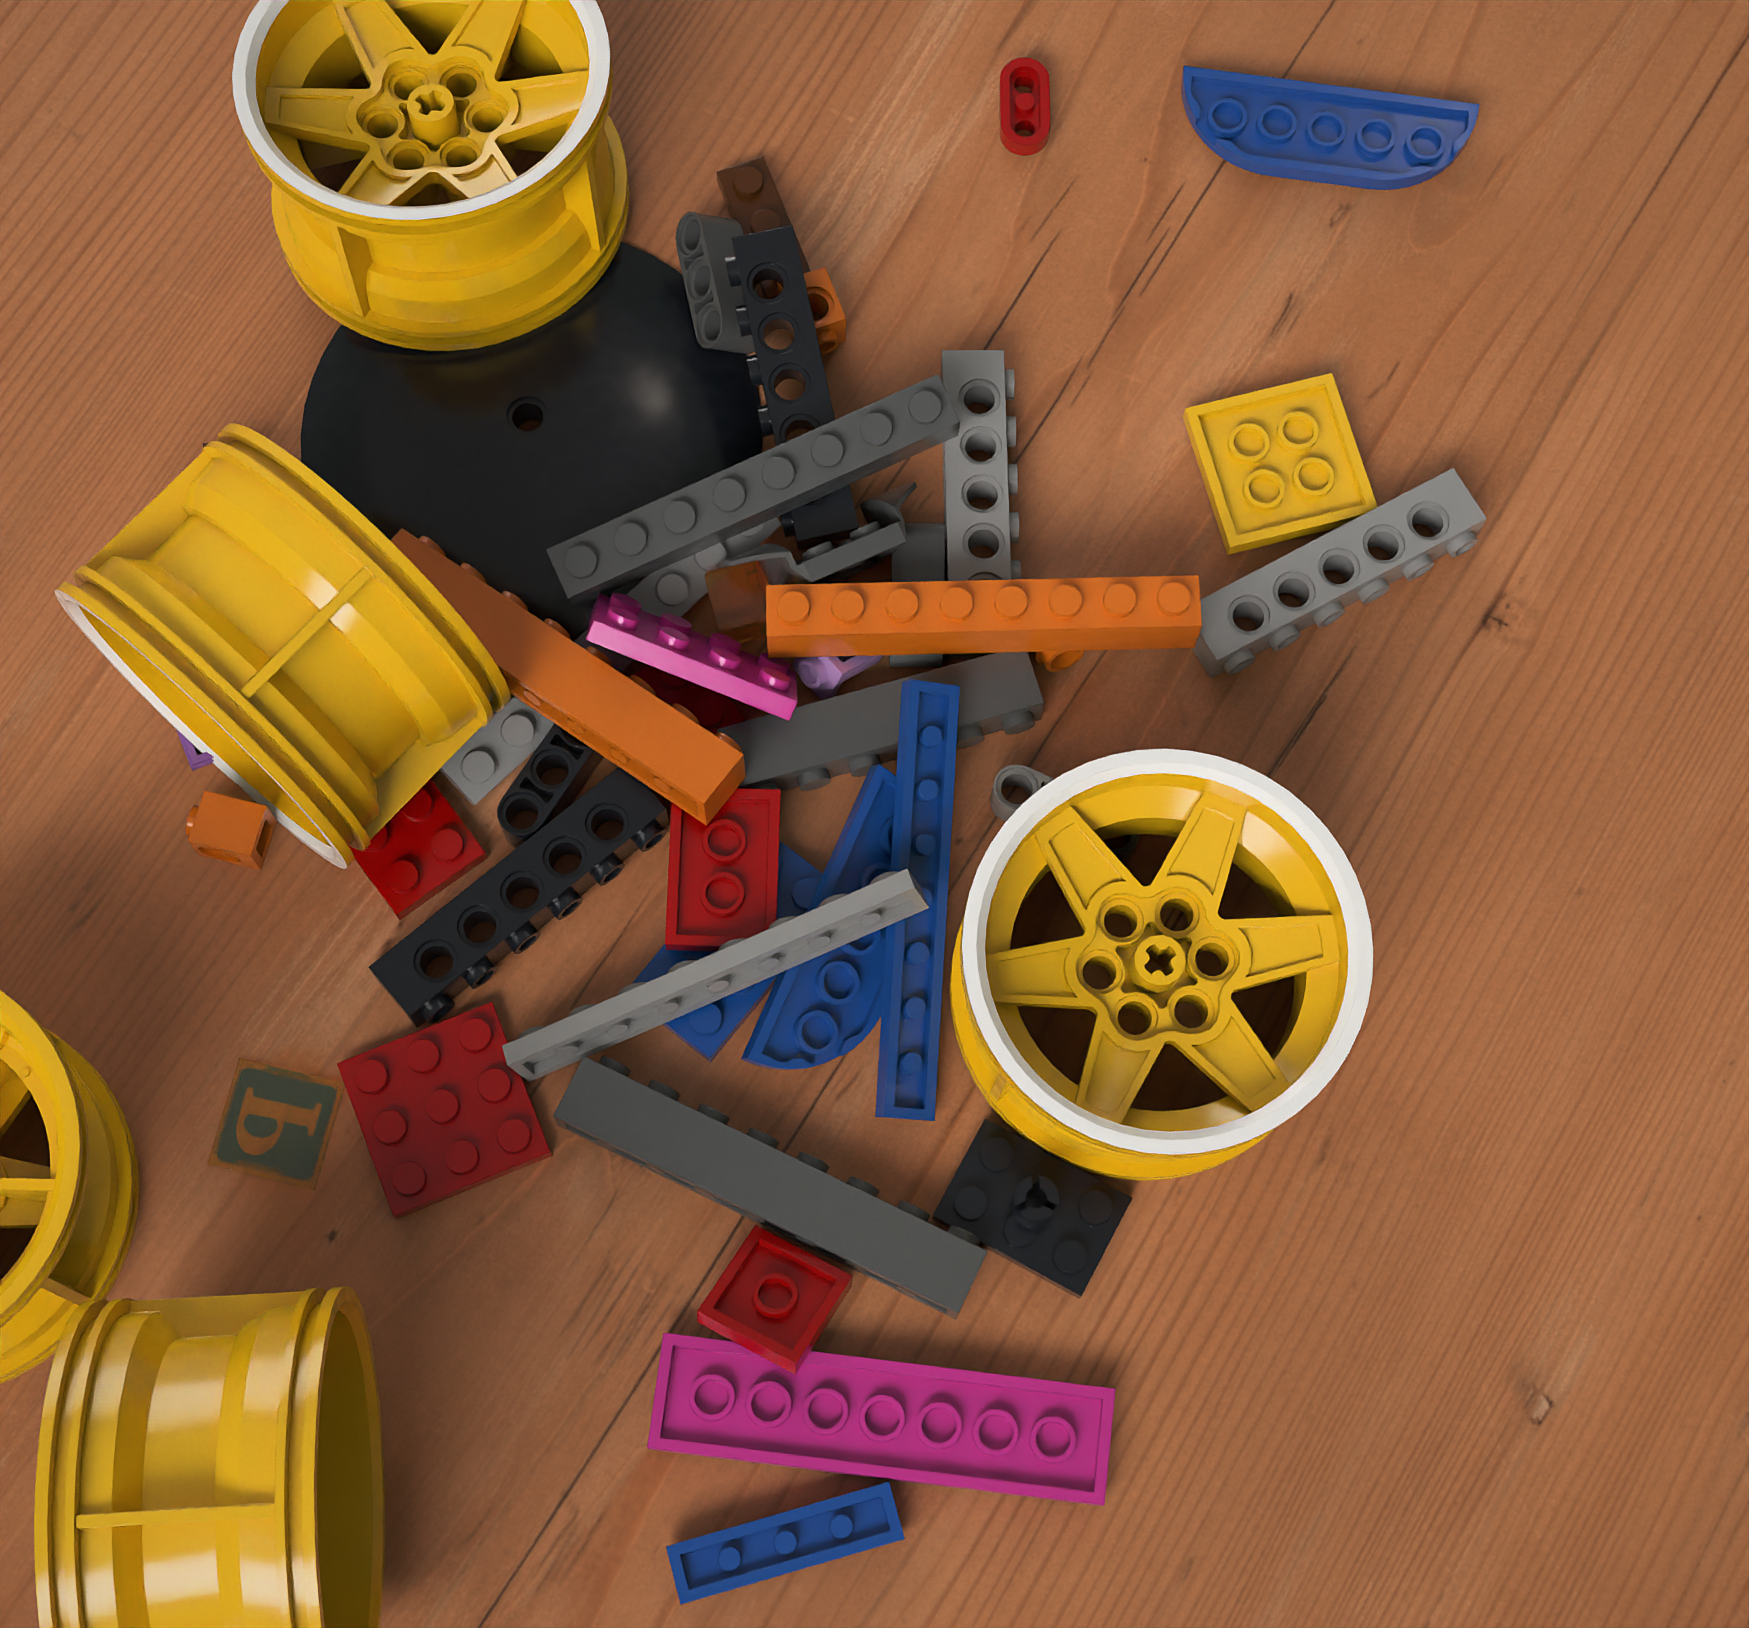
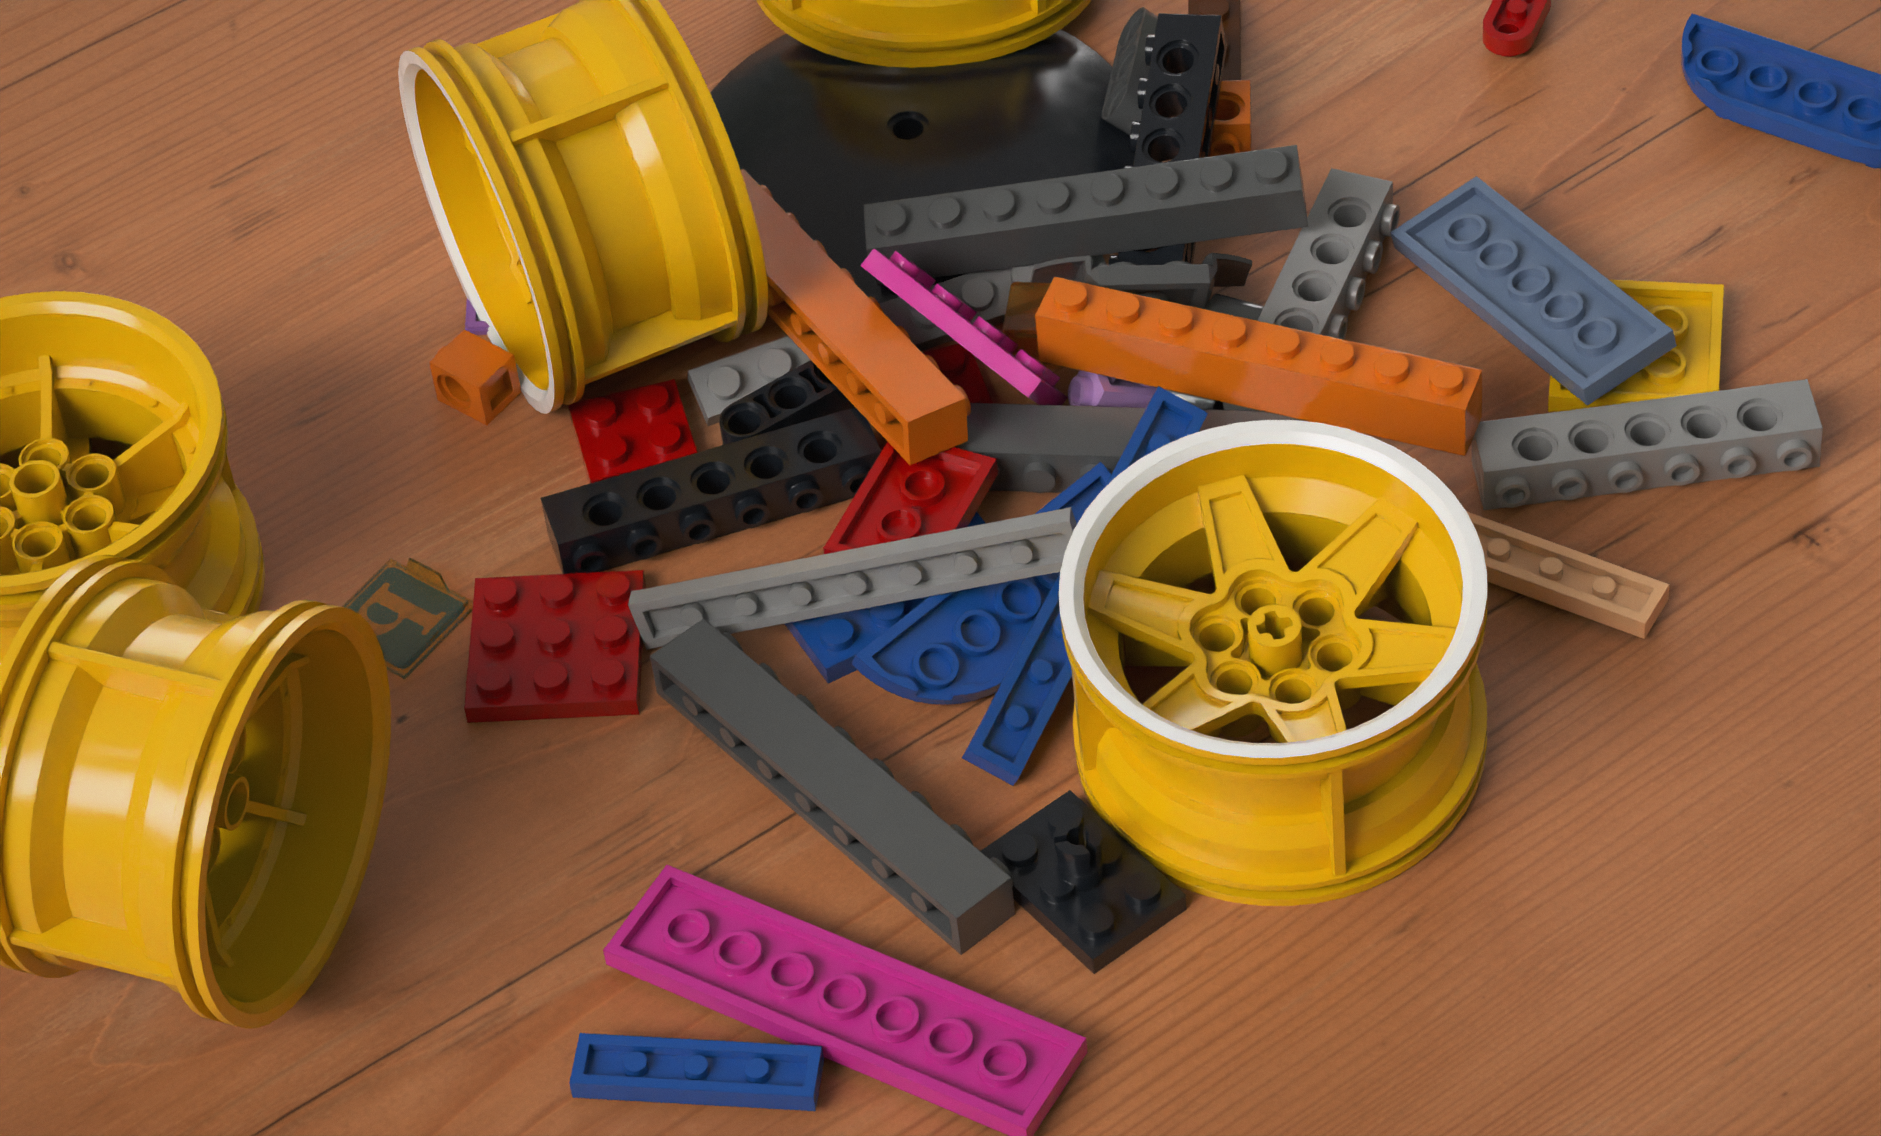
camera: 30 degrees right, 25 degrees down
(774, 1299) = (786, 865): red plate -> none
(1175, 435) = (1533, 290): none -> sand blue plate
(1253, 732) = (1570, 578): none -> light nougat plate

